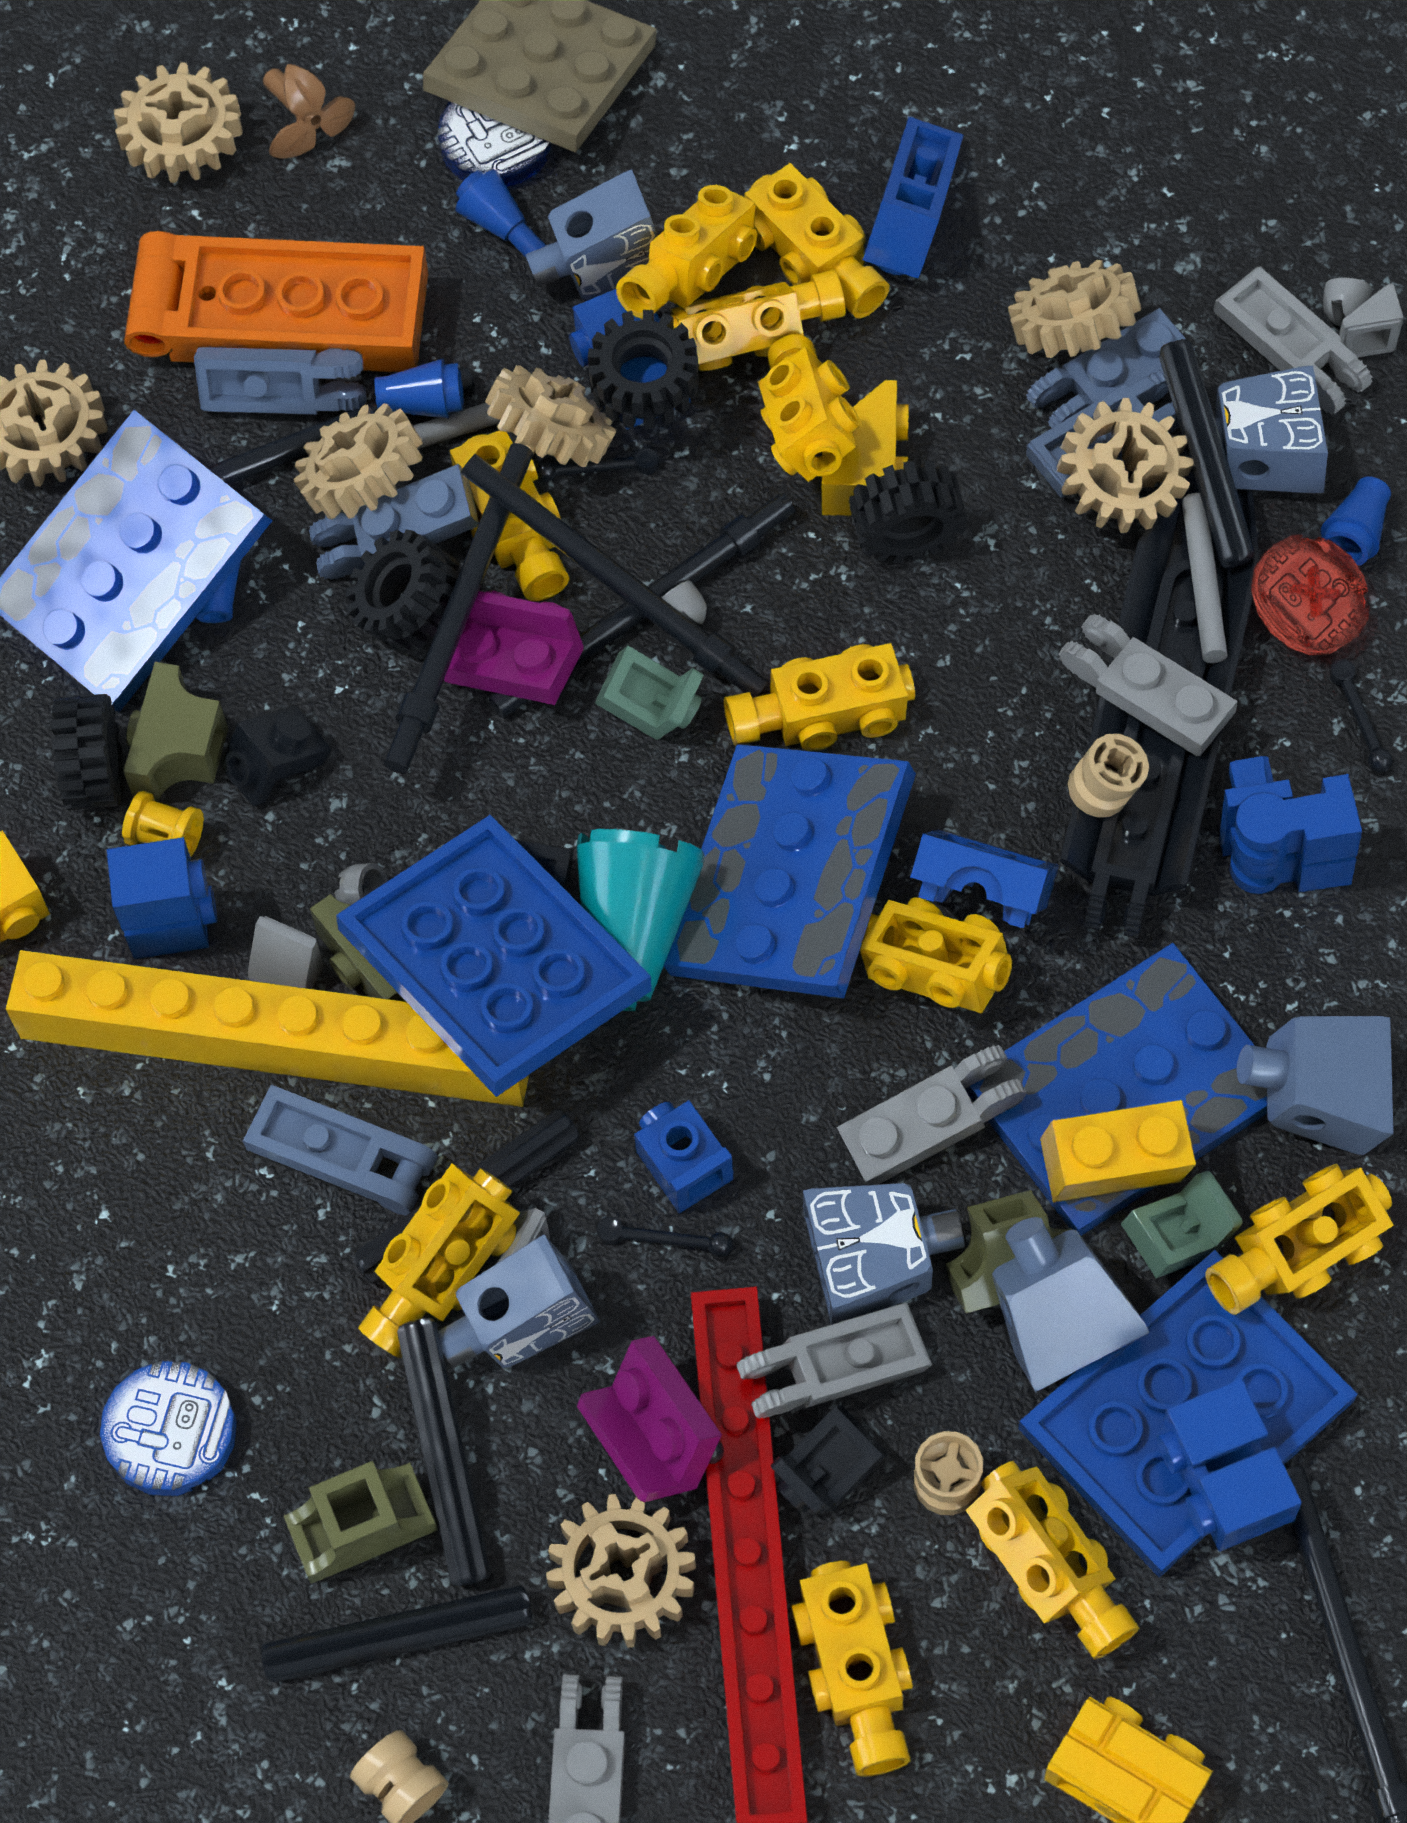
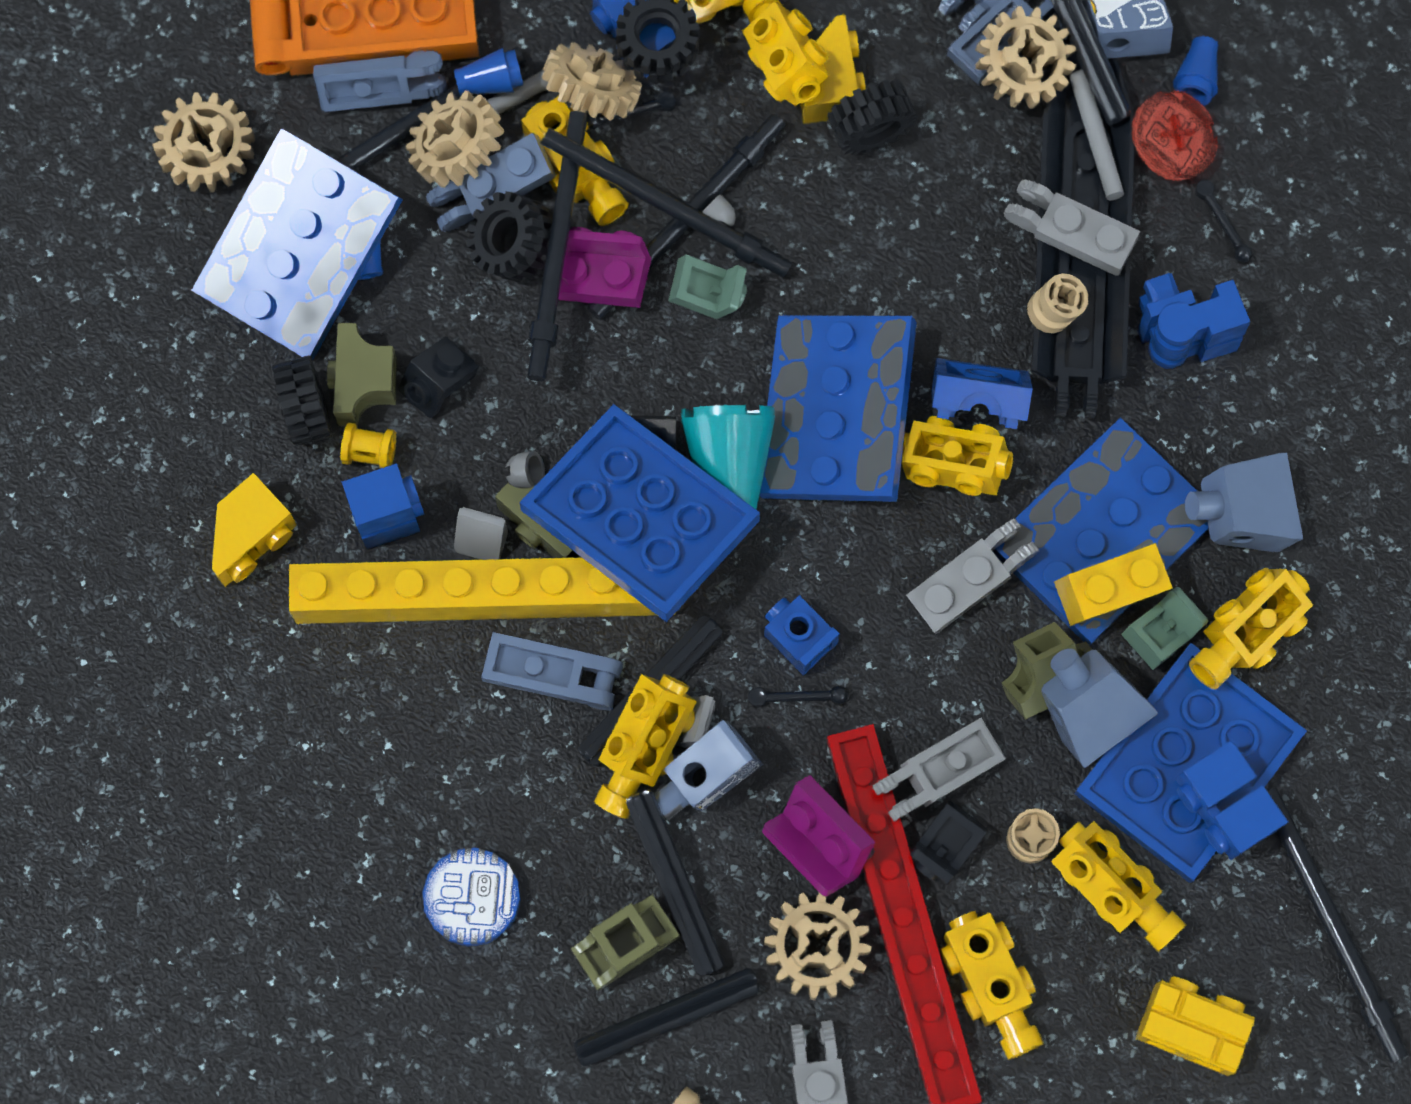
camera: 15 degrees left, 10 degrees up
(826, 698) = (850, 273): yellow brick -> none
(874, 1245) = (949, 679): sand blue torso -> none

